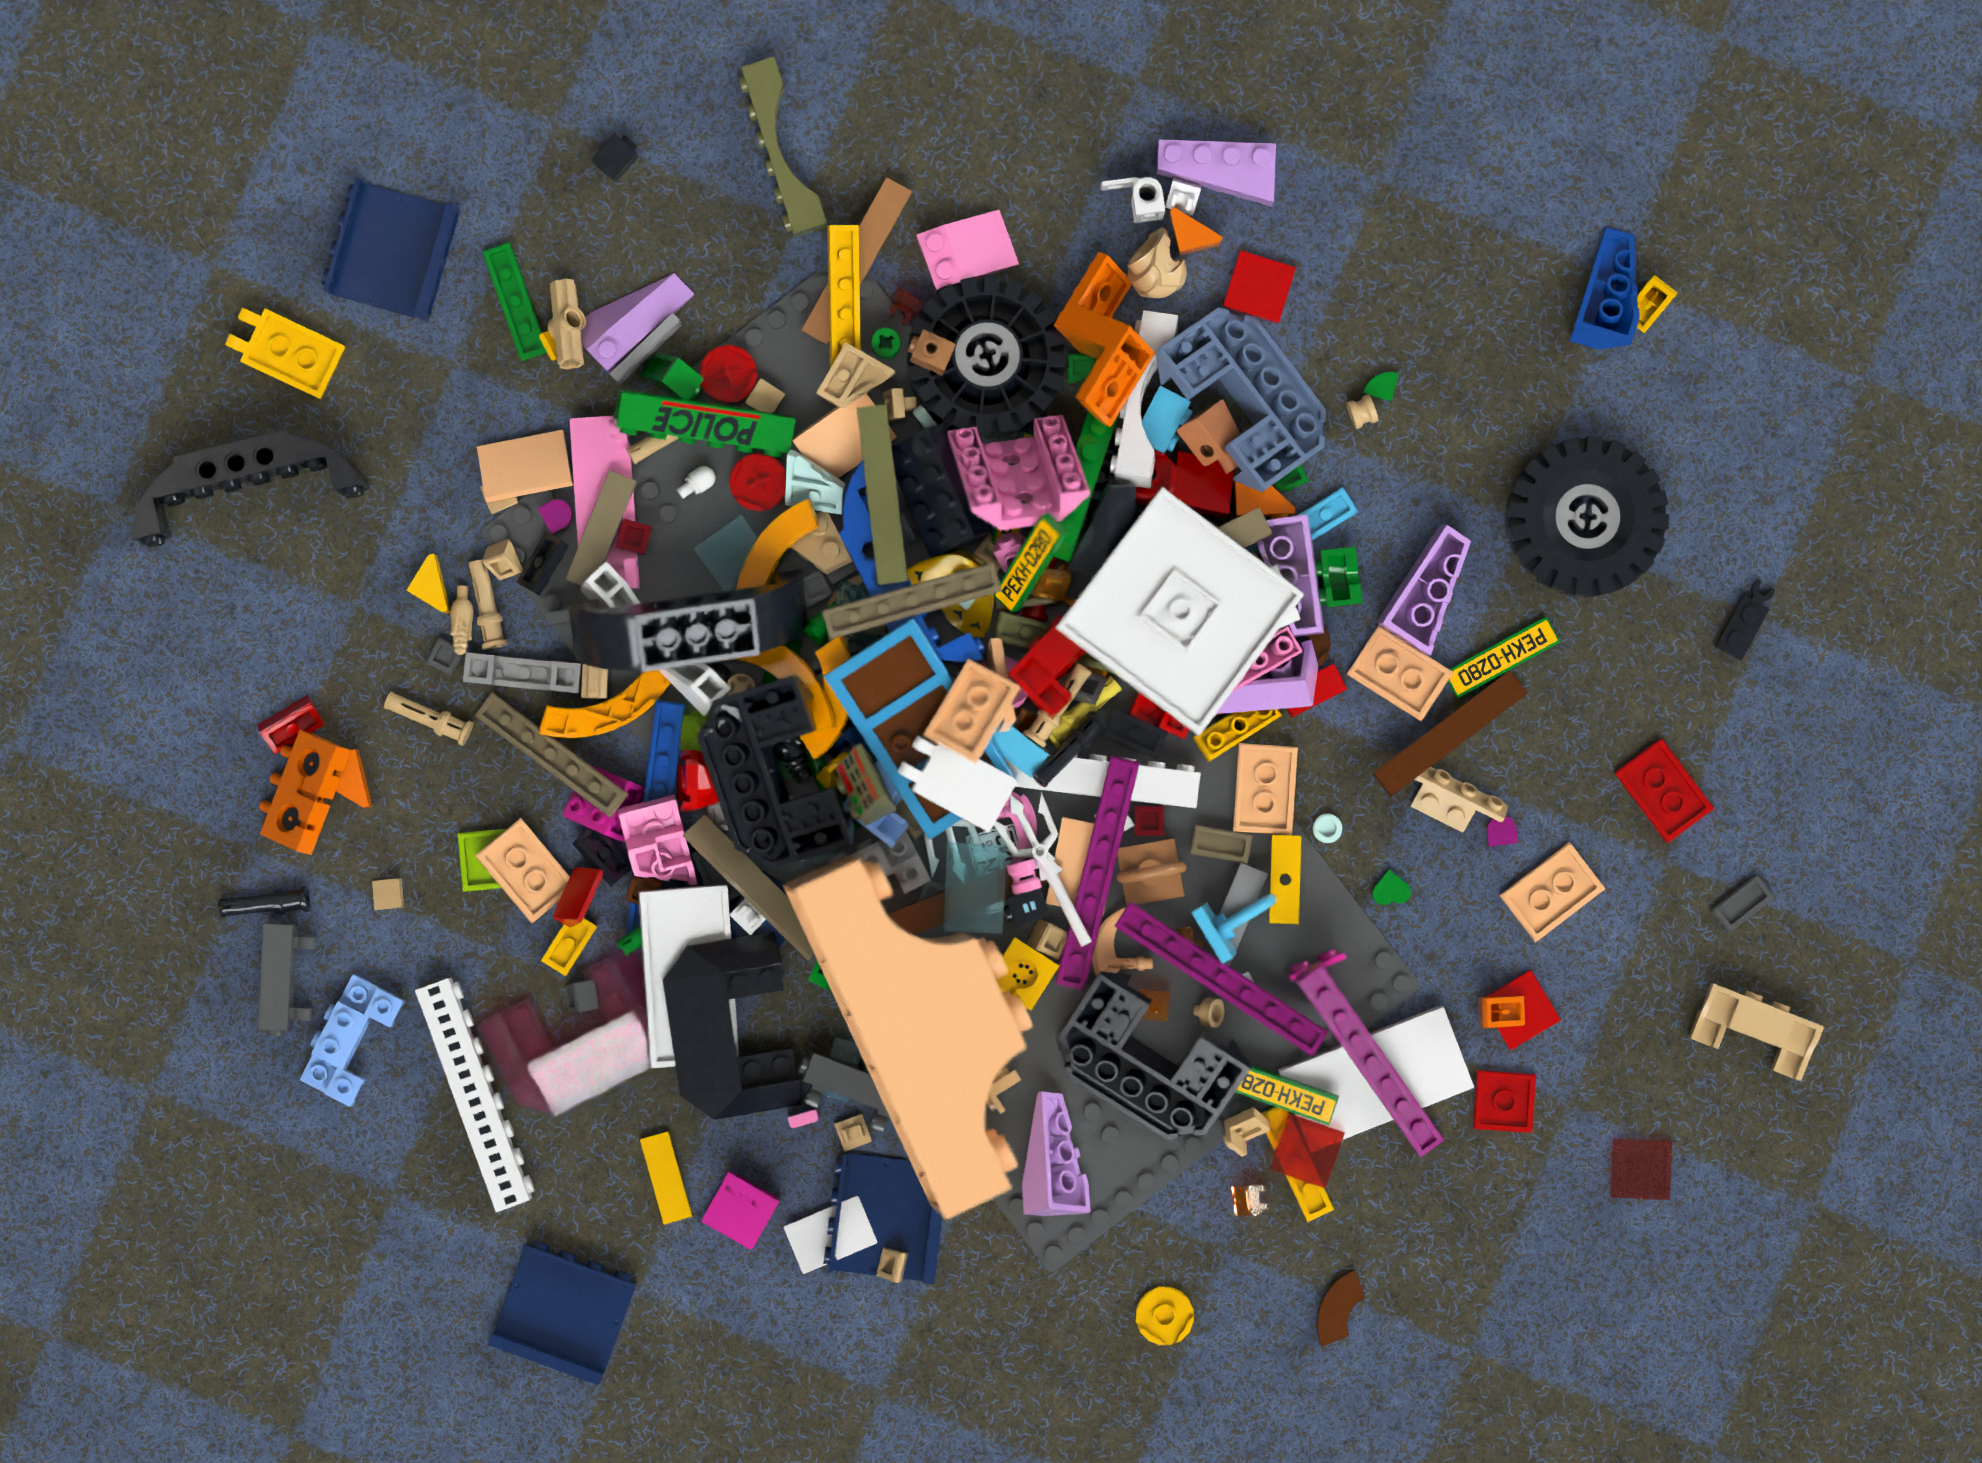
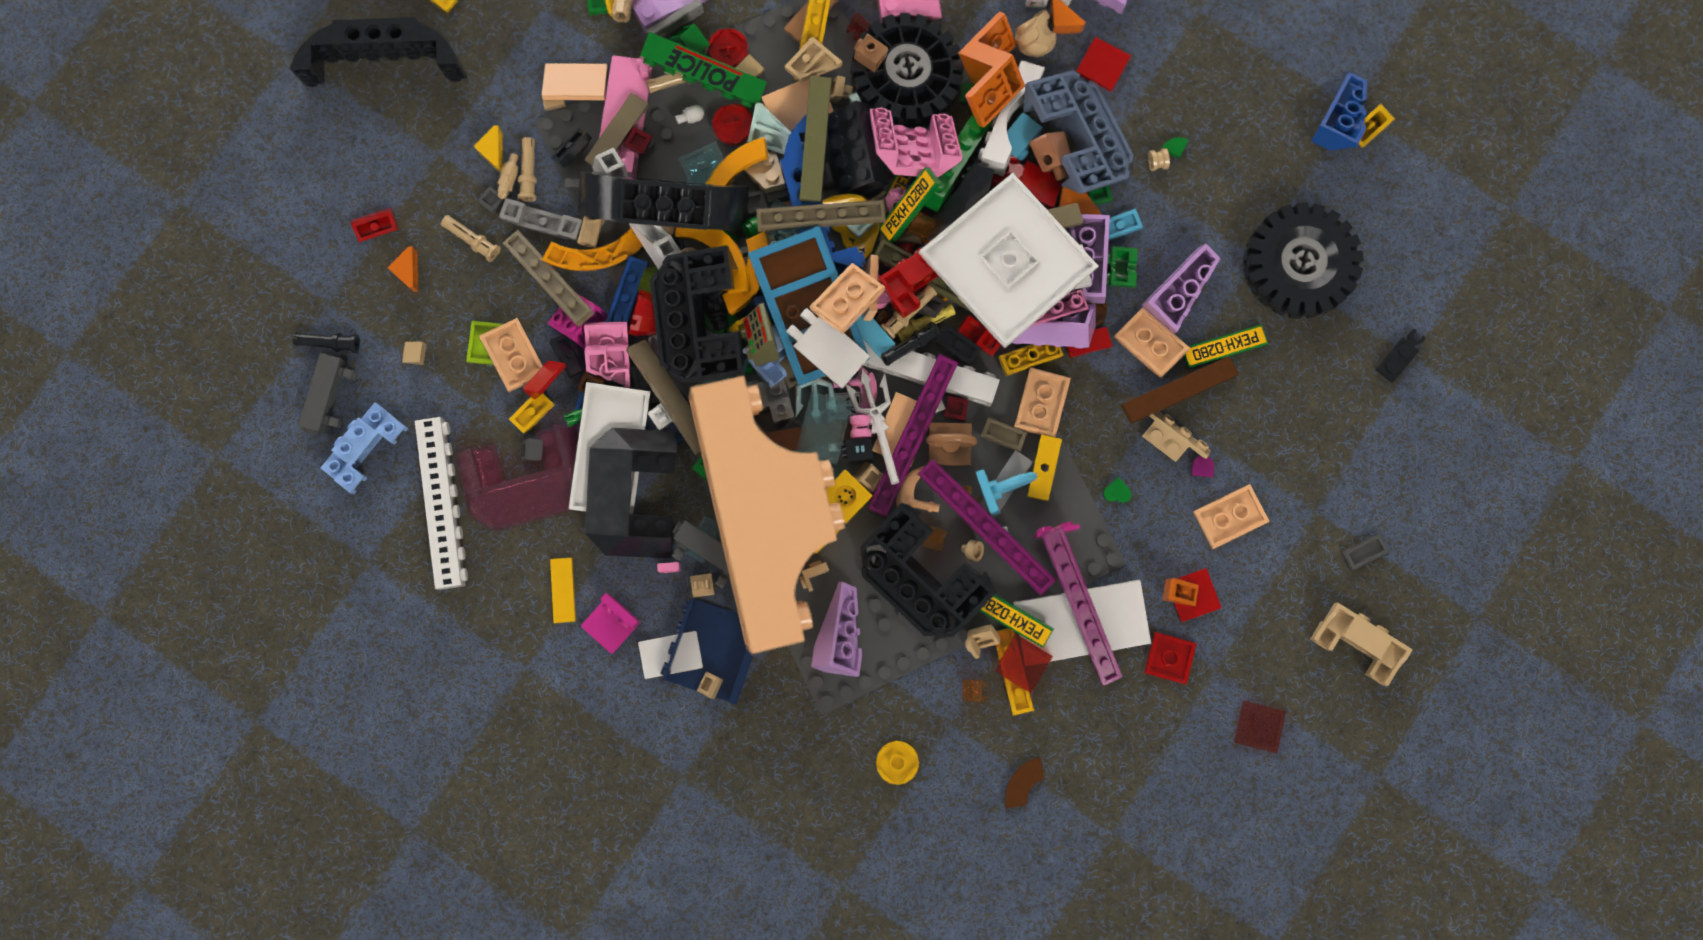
camera: 10 degrees right, 5 degrees down
(298, 804) = (364, 275): orange piece -> none
(502, 560) = (545, 142): tan slope -> none
(556, 515) = (589, 118): magenta tile -> none
(563, 1312) = (468, 671): dark blue panel -> none
(889, 347) = (840, 52): green wheel -> none
(1327, 828) = (1080, 440): light aqua tile -> none
(1664, 790) = (1322, 461): red tile -> none

